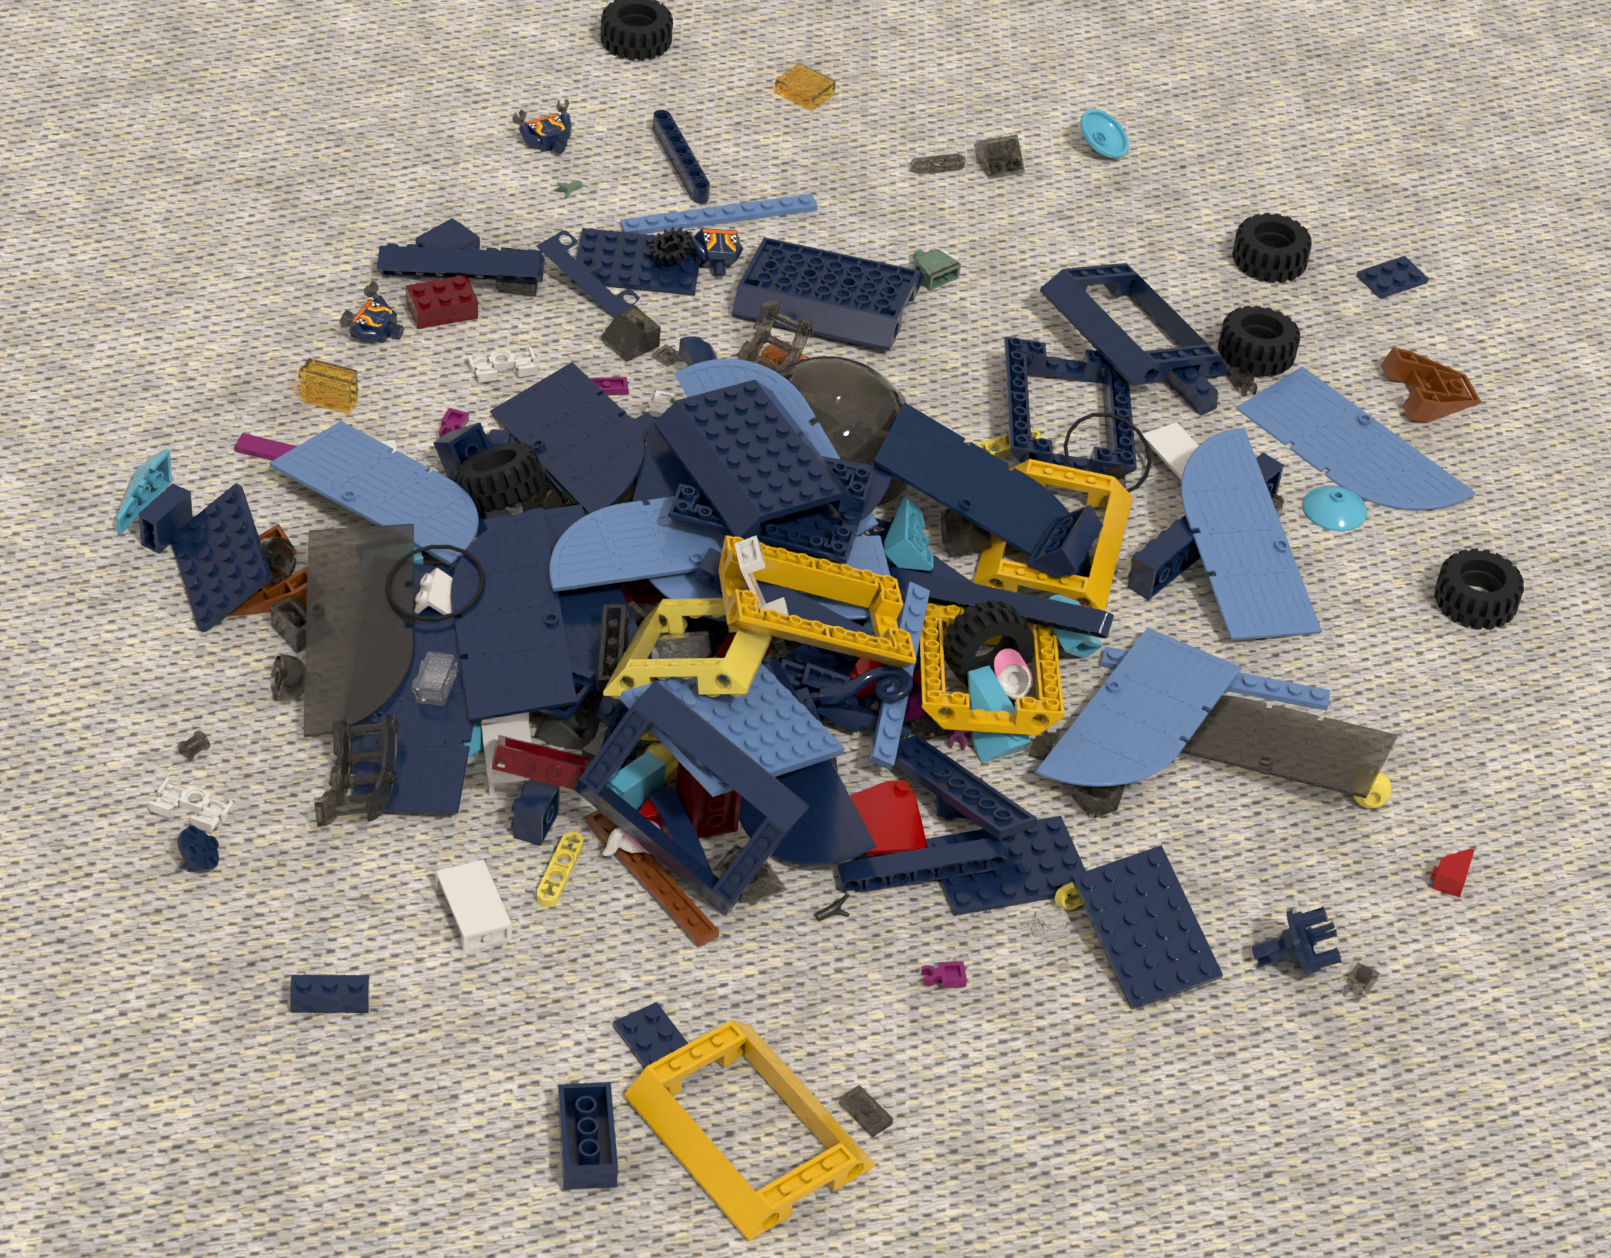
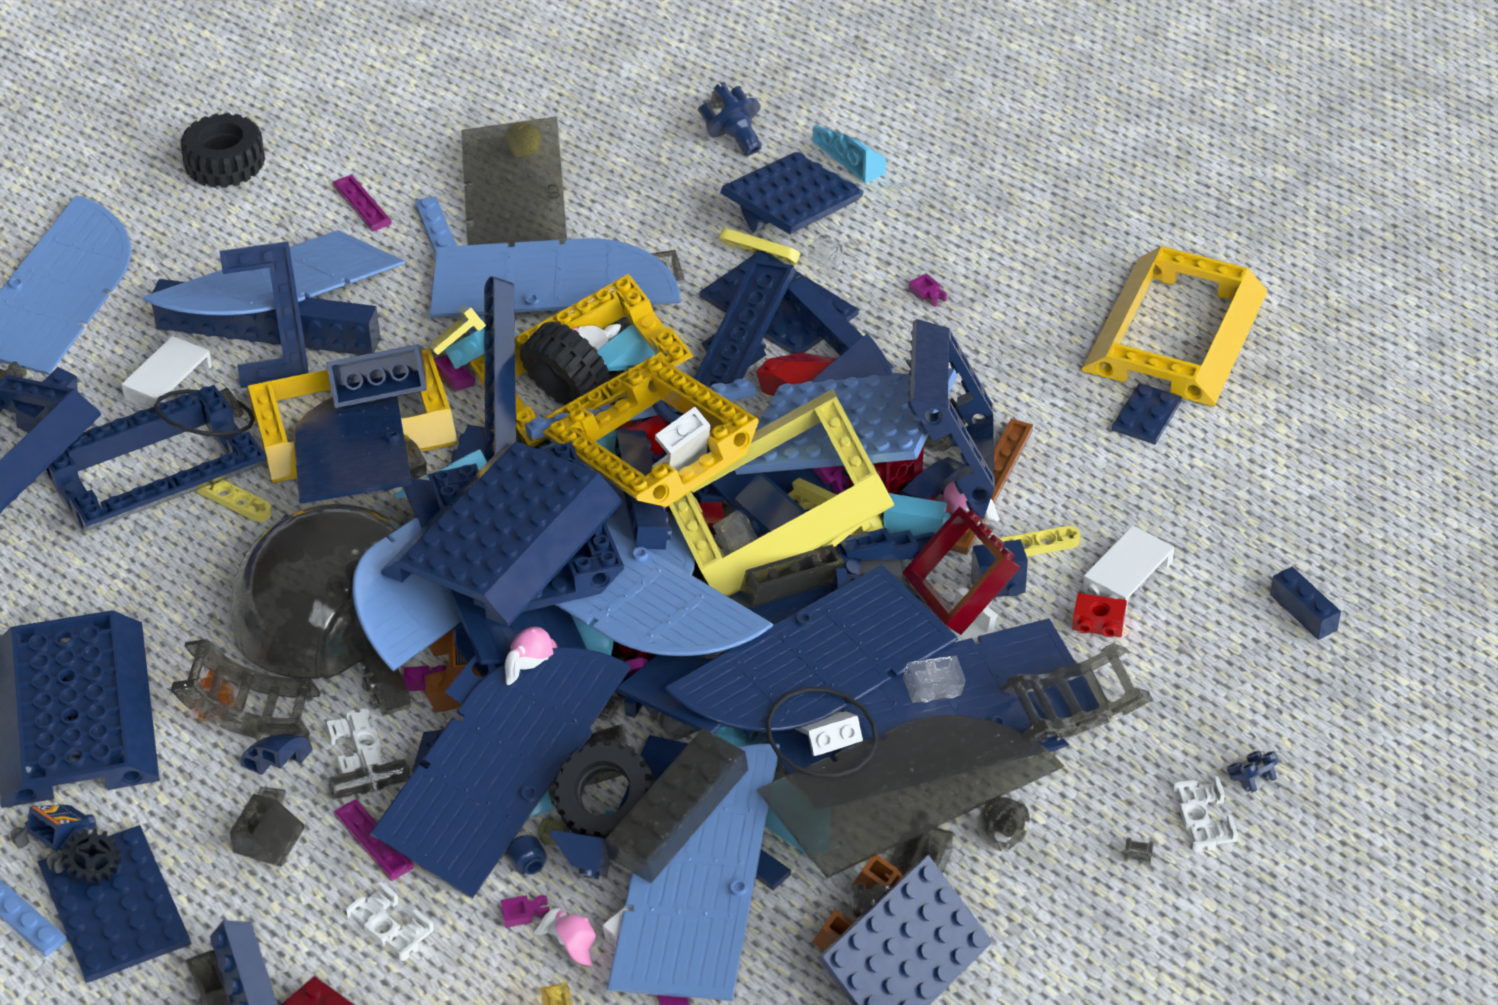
camera: 115 degrees left, 0 degrees up
(402, 428) = (571, 931): none -> bright pink hair
(441, 486) = (676, 805): none -> clear smoke brick
(441, 852) = (1099, 615): none -> red brick
(582, 274) = (188, 926): dark blue piece -> none
(587, 1135) = (1277, 395): dark blue brick -> none
(638, 392) = (368, 779): none -> clear smoke piece
(642, 456) = (528, 651): none -> bright pink hair
(866, 1111) = (1097, 279): clear smoke plate -> none
(1071, 592) = (468, 320): none -> light yellow fence
(1149, 516) = (278, 259): none -> dark blue plate
(1185, 1018) = (851, 153): none -> medium azure wedge
(1334, 508) = (157, 264): medium azure dish -> none
(1353, 660) = (362, 203): none -> magenta tile
(1452, 872) = (572, 83): red slope -> none

